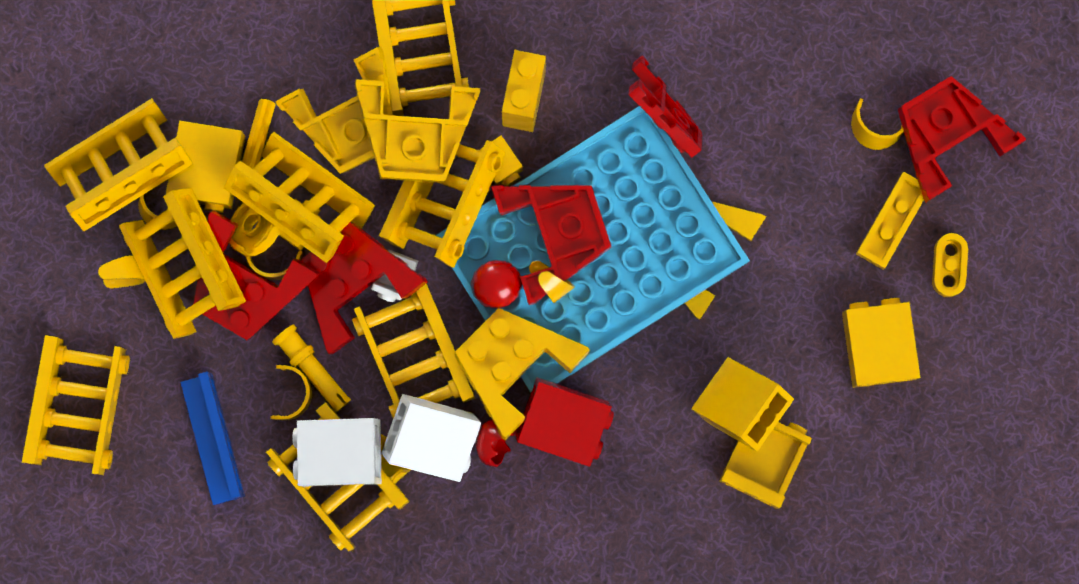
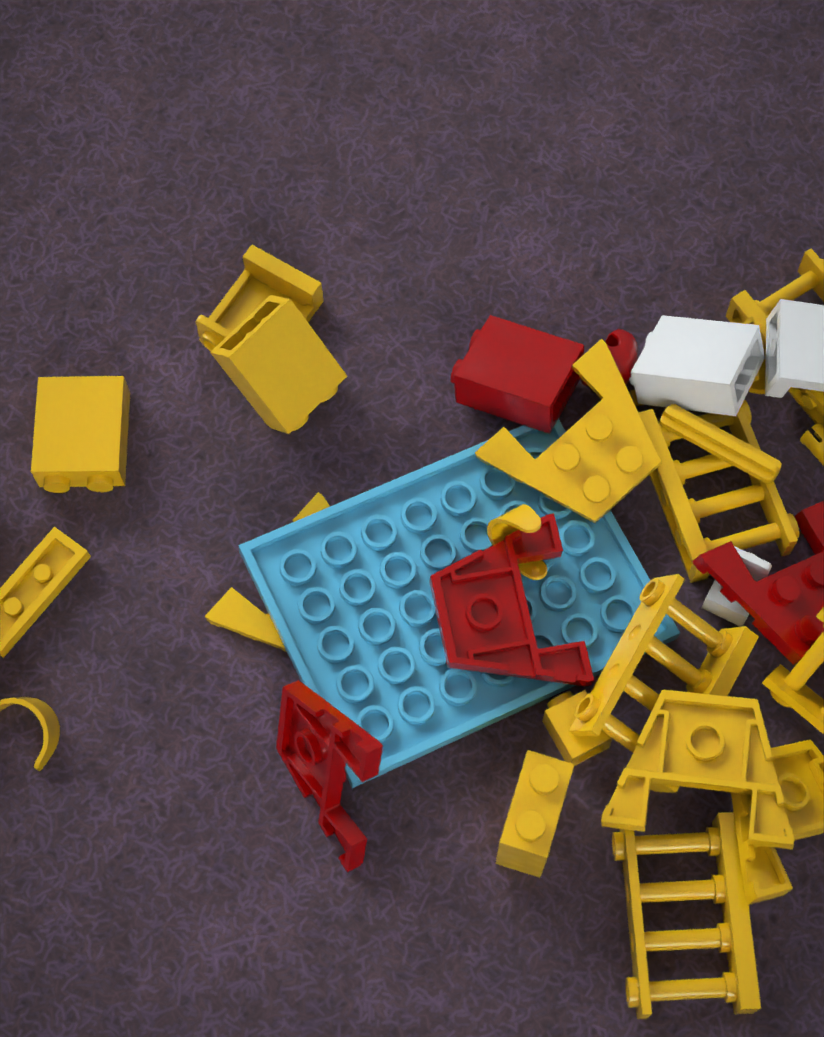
camera: 170 degrees left, 15 degrees down
(412, 375) = (720, 443): none -> yellow axle
(496, 284) = (595, 553): red hair -> none

